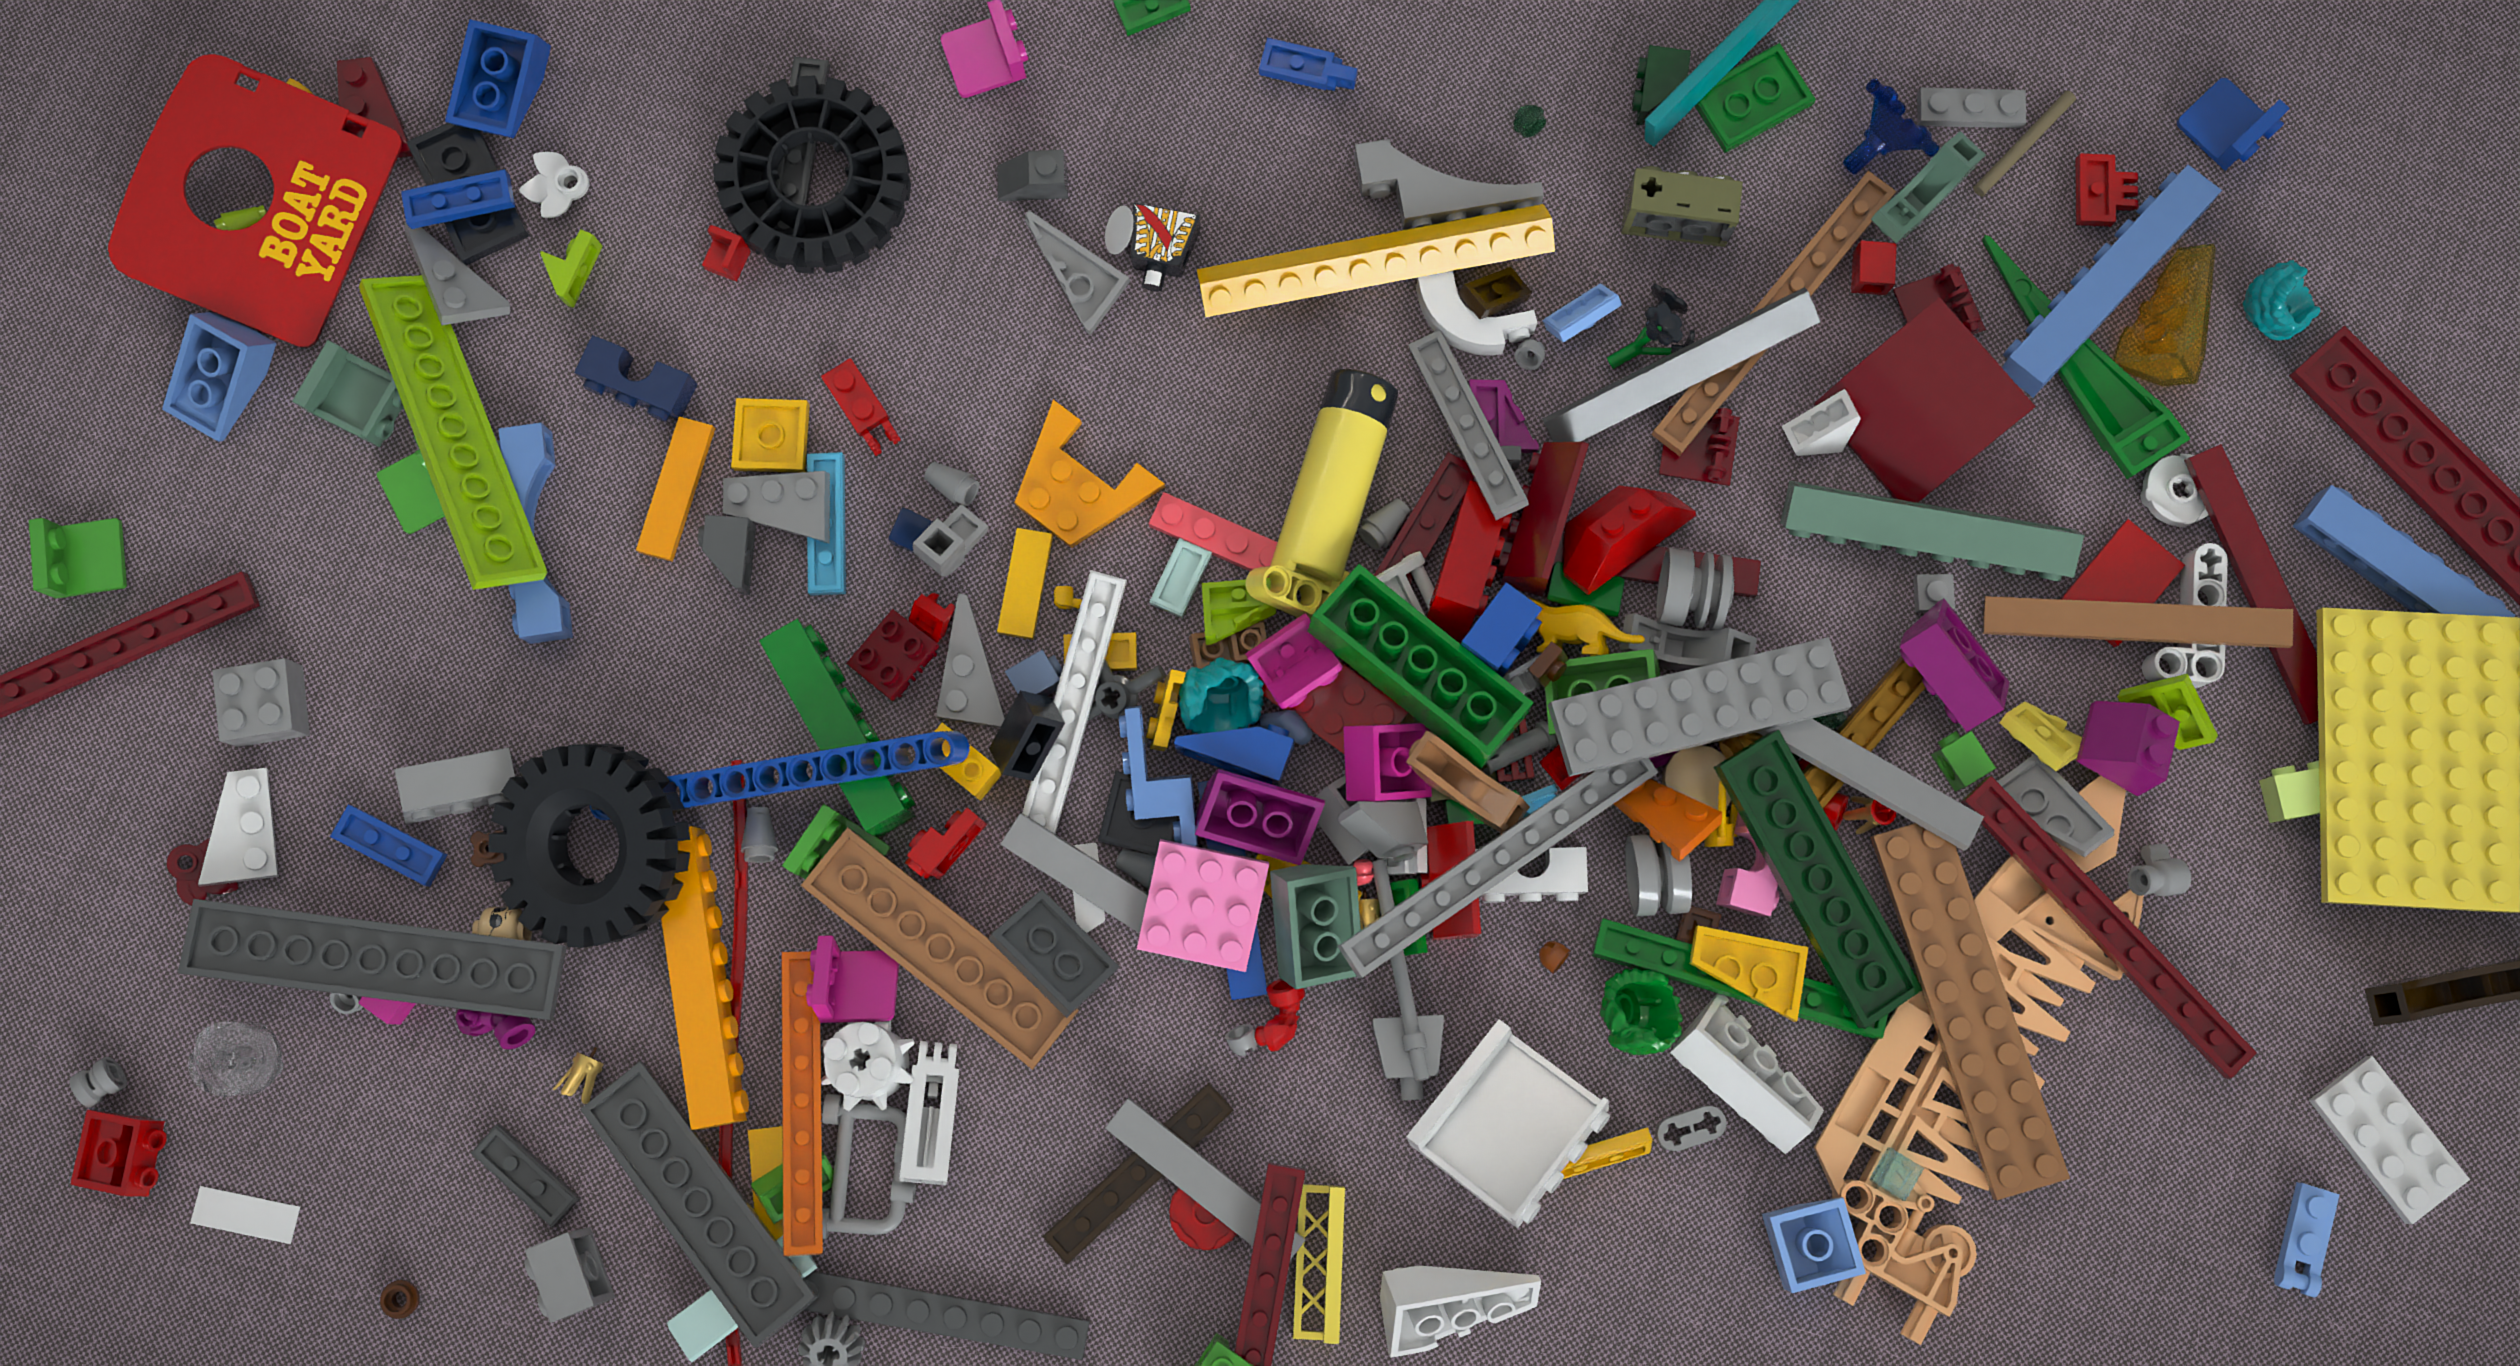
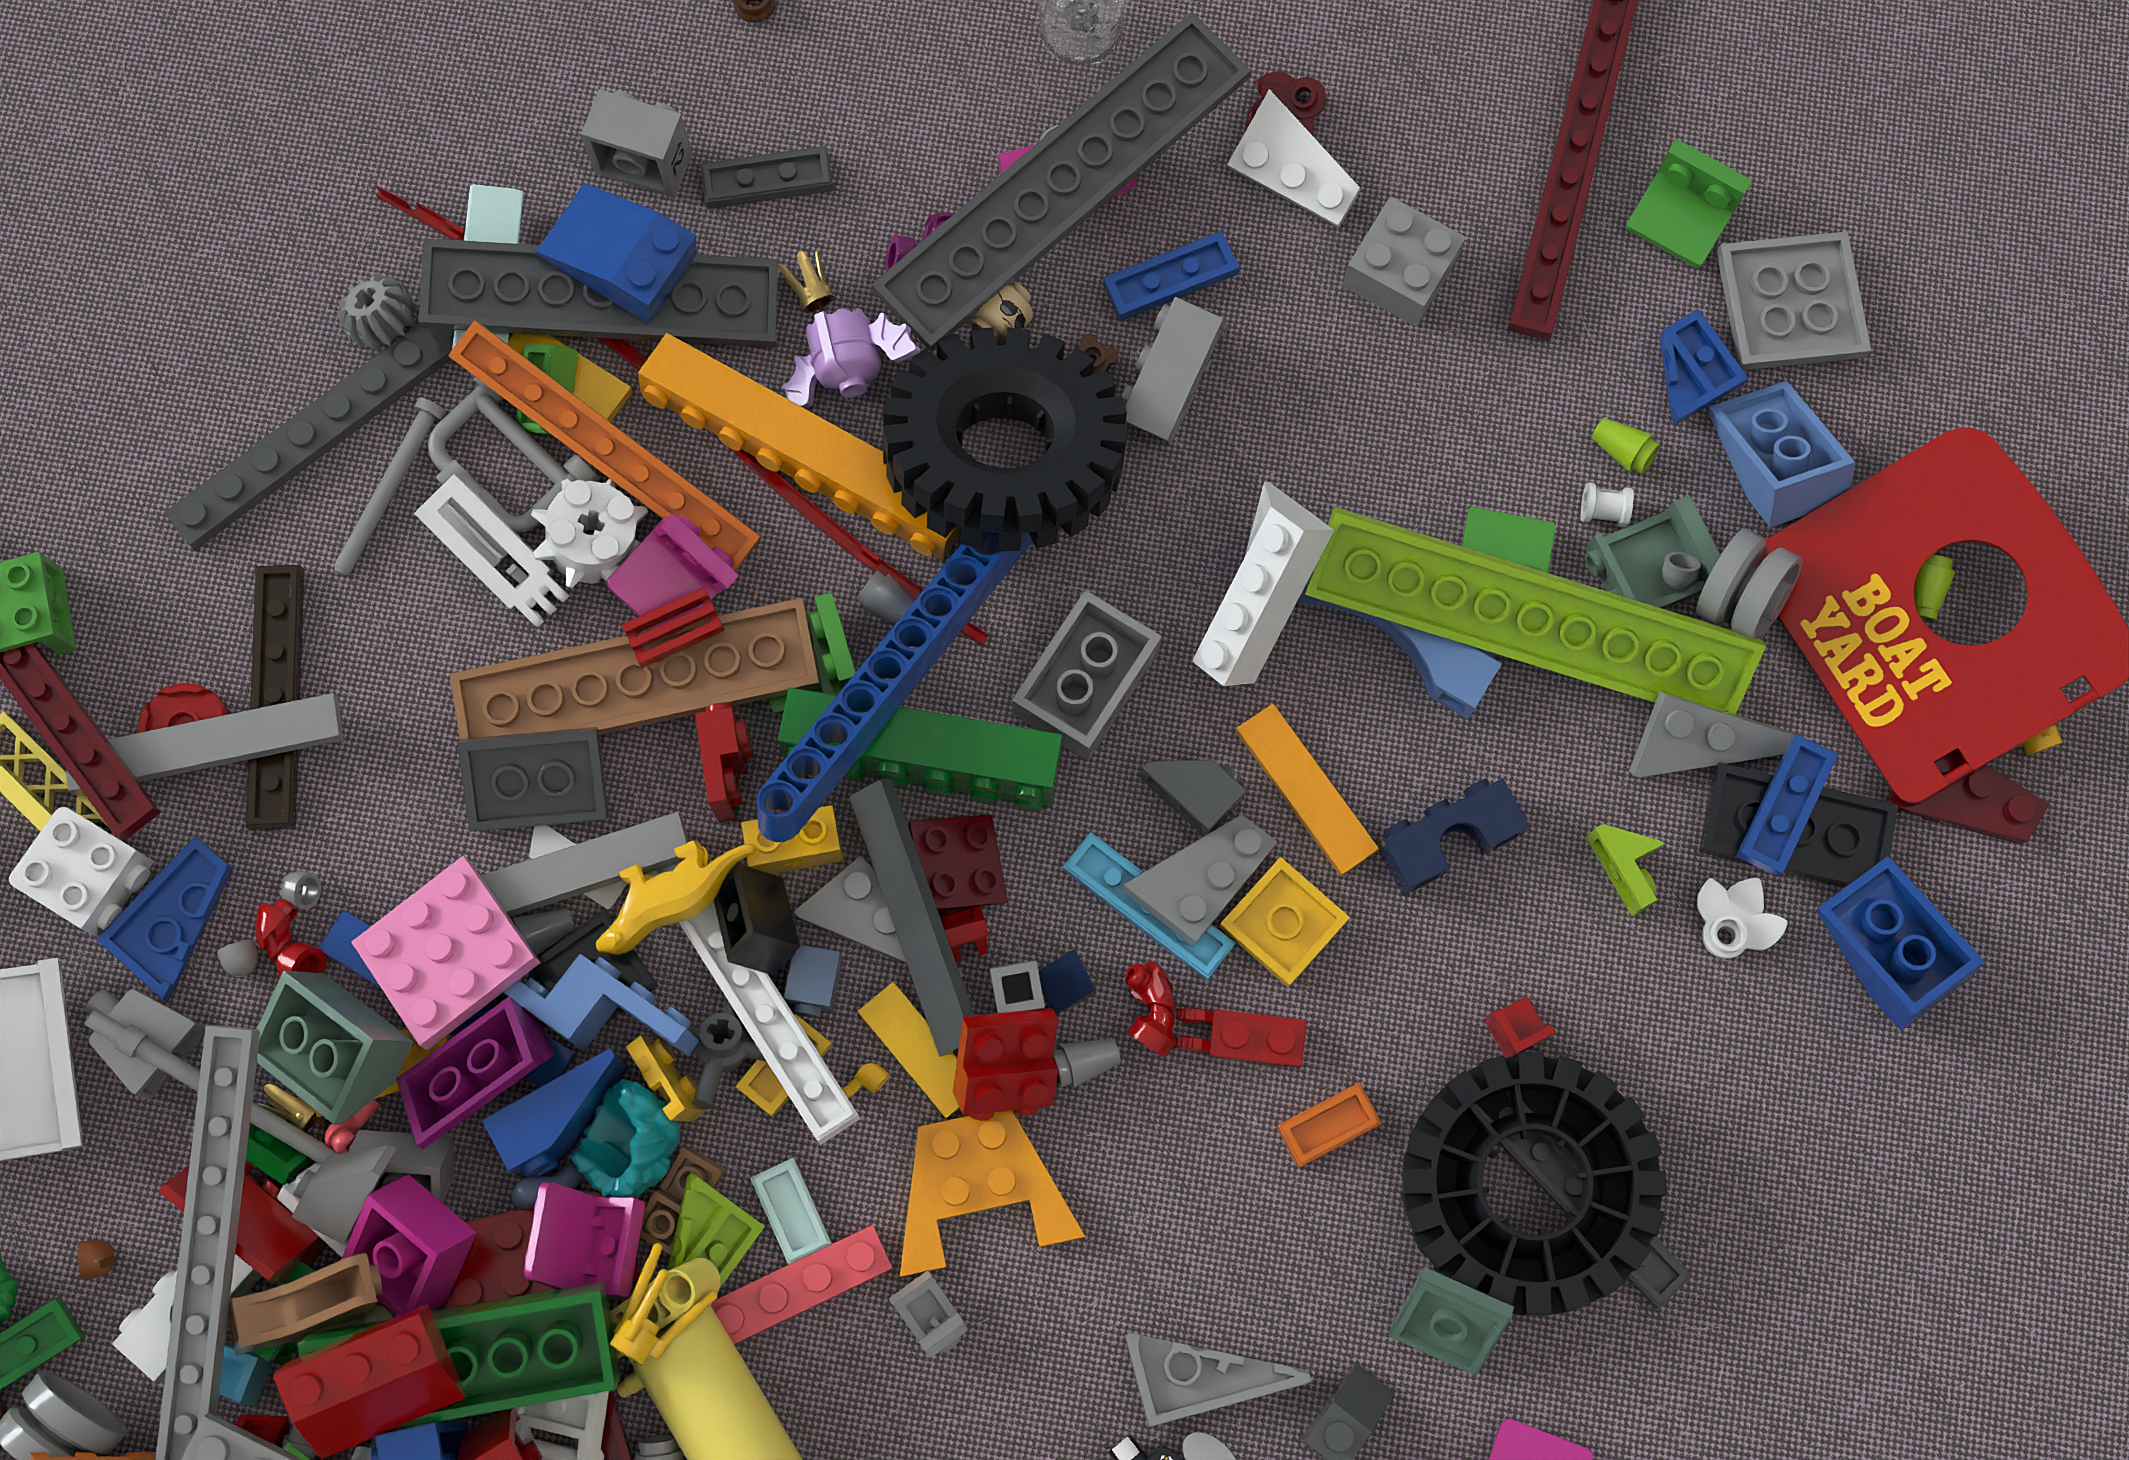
camera: 125 degrees right, 5 degrees down
(99, 443) = (1793, 300): none -> light grey plate
(195, 468) = (1696, 366): none -> blue wing
(286, 470) = (1626, 444): none -> lime cone
(327, 316) = (1749, 585): none -> light grey wheel
(338, 451) = (1607, 504): none -> white bush
(348, 373) = (1680, 570): none -> light grey hinge
(547, 603) = (1275, 569): none -> white wedge
(613, 1001) = (846, 354): none -> lavender helmet
(656, 1210) = (620, 250): none -> blue slope
(708, 671) = (1086, 674): none -> light grey brick
(858, 935) = (666, 612): none -> red tile
(873, 318) = (1329, 1125): none -> orange tile
(873, 1248) = (427, 414): none -> light grey bar
(874, 478) = (1152, 987): none -> red arm
(930, 159) = (1450, 1321): none -> sand green plate
(946, 643) = (913, 912): none -> dark grey tile
(990, 516) = (1006, 1063): none -> red plate
(1056, 799) = (669, 895): none -> yellow animal
(1171, 446) = (929, 1315): none -> light grey bracket
(1314, 1036) = (239, 958): none -> light grey hinge
(1319, 576) = (635, 1333): none -> yellow plant
(1327, 1105) = (168, 917): none -> blue wing
(1346, 1182) = (80, 871): none -> white bracket
(1470, 696) = (369, 1382): none -> red slope

